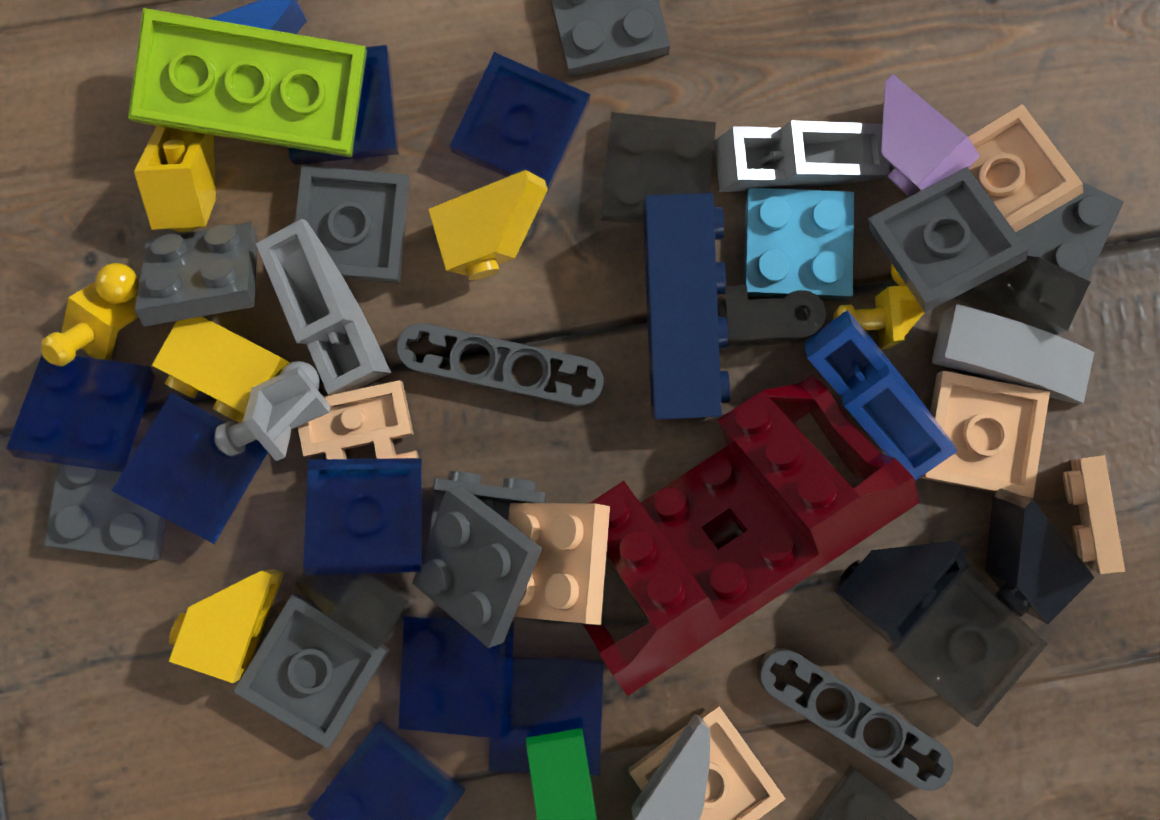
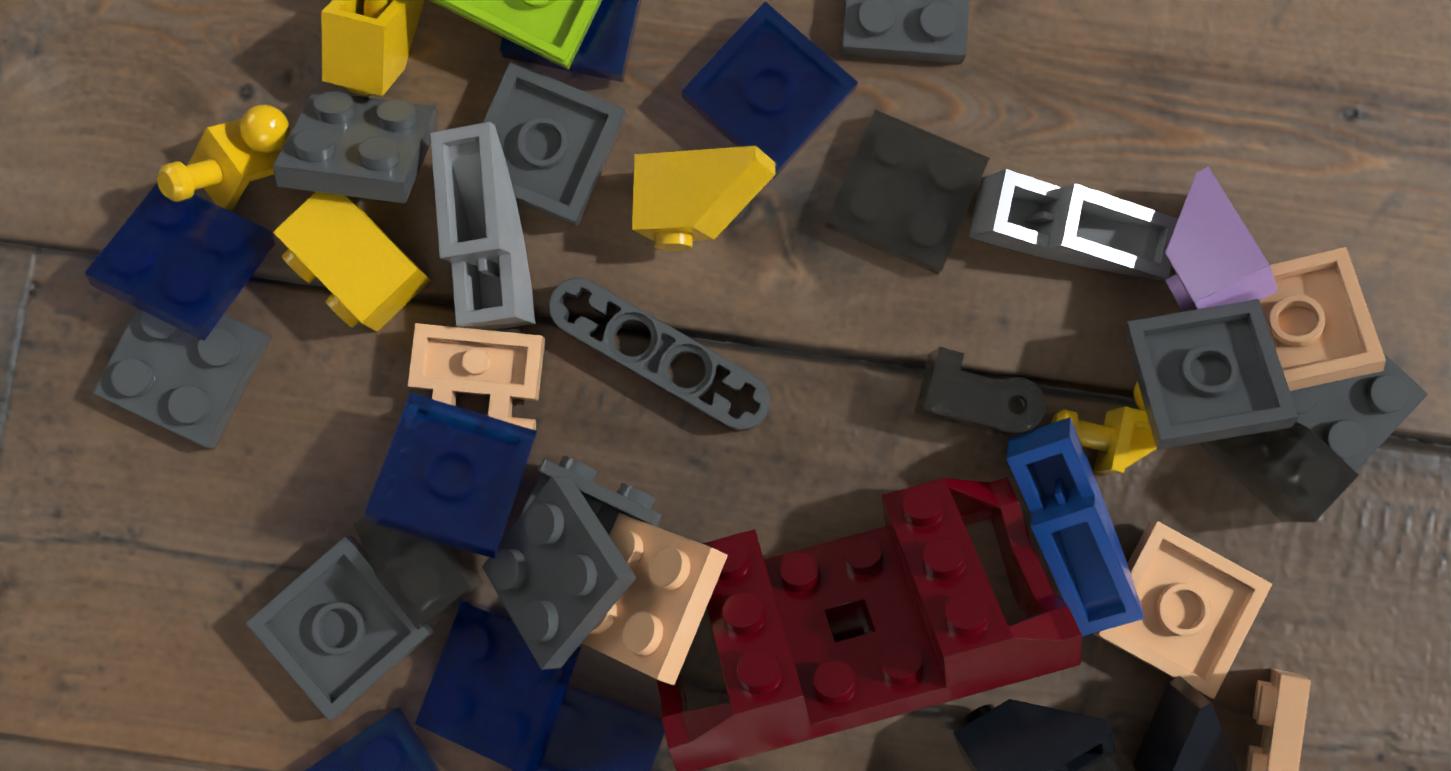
camera: 20 degrees right, 0 degrees up
(185, 474) = (279, 360): clear blue plate -> none
(225, 628) = (261, 550): yellow slope -> none
(275, 410) = (392, 325): light grey piece -> none
(683, 305) = (885, 354): dark blue brick -> none
(798, 242) = (1040, 323): medium azure plate -> none
(1012, 353) = (1243, 527): light grey slope -> none

